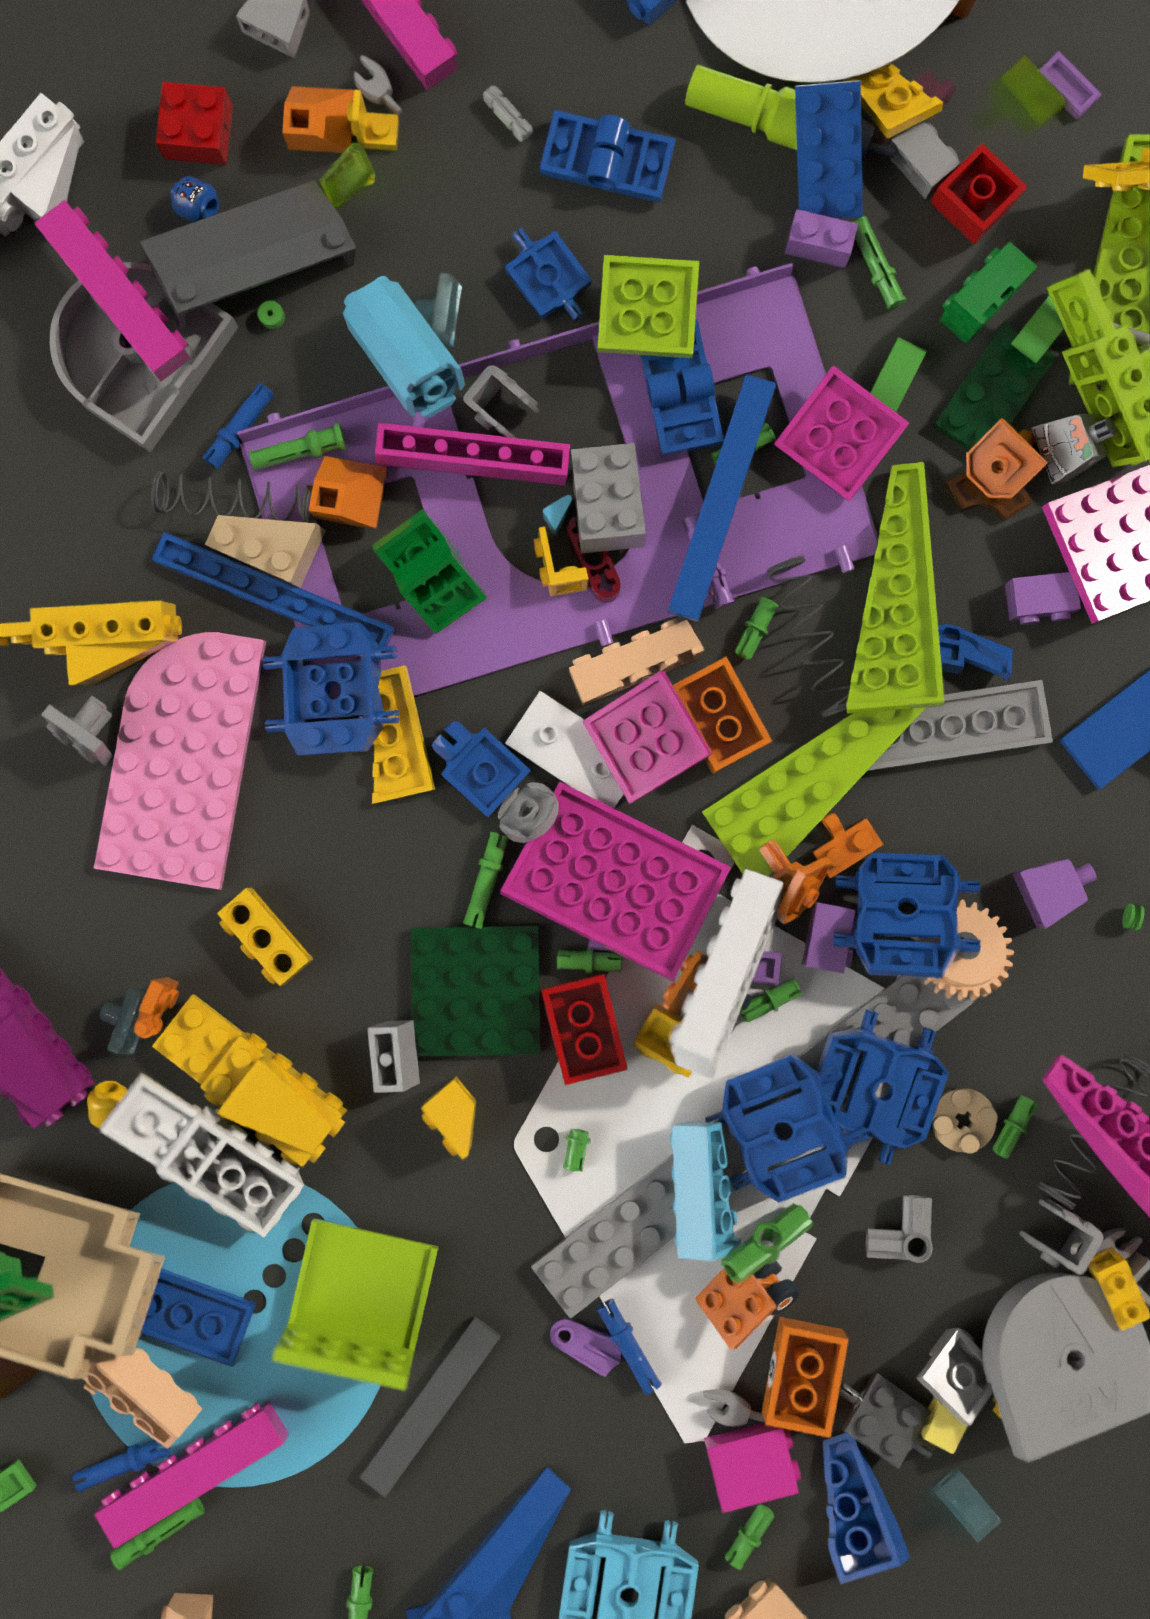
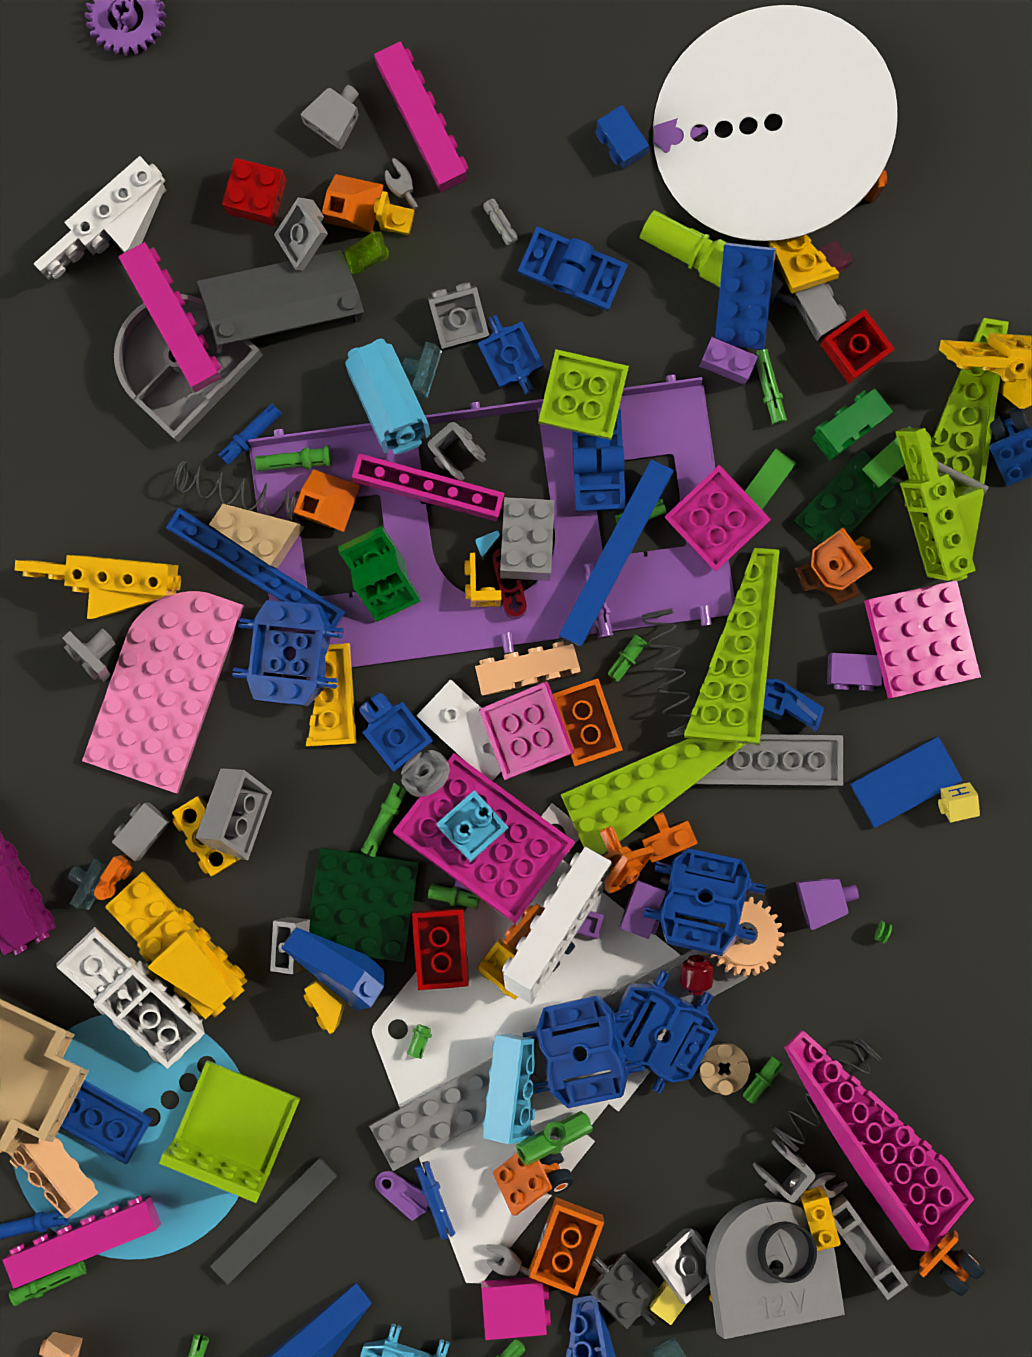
camera: 15 degrees right, 0 degrees up
(103, 1100) = (61, 943): yellow head -> none
(182, 944) = (141, 831): none -> light grey brick
(194, 199) = (244, 251): blue head -> none
(261, 161) = (301, 232): none -> light grey plate
(274, 321) = (286, 346): bright green piece -> none
(296, 901) = (234, 813): none -> light grey slope
(459, 1073) = (341, 969): none -> blue wedge
(474, 236) = (458, 315): none -> light grey plate
(599, 867) = (472, 826): none -> medium azure plate
(772, 999) = (590, 950): bright green axle -> none
(912, 1008) = (696, 974): none -> dark red head
(915, 1224) = (673, 1142): light grey piece -> none
(1033, 90) = (915, 270): clear neon green tile -> none
(1070, 84) = (943, 270): medium lavender tile -> none
(1072, 445) = (896, 556): light grey torso -> none
(1118, 1338) = (812, 1255): none -> black tyre

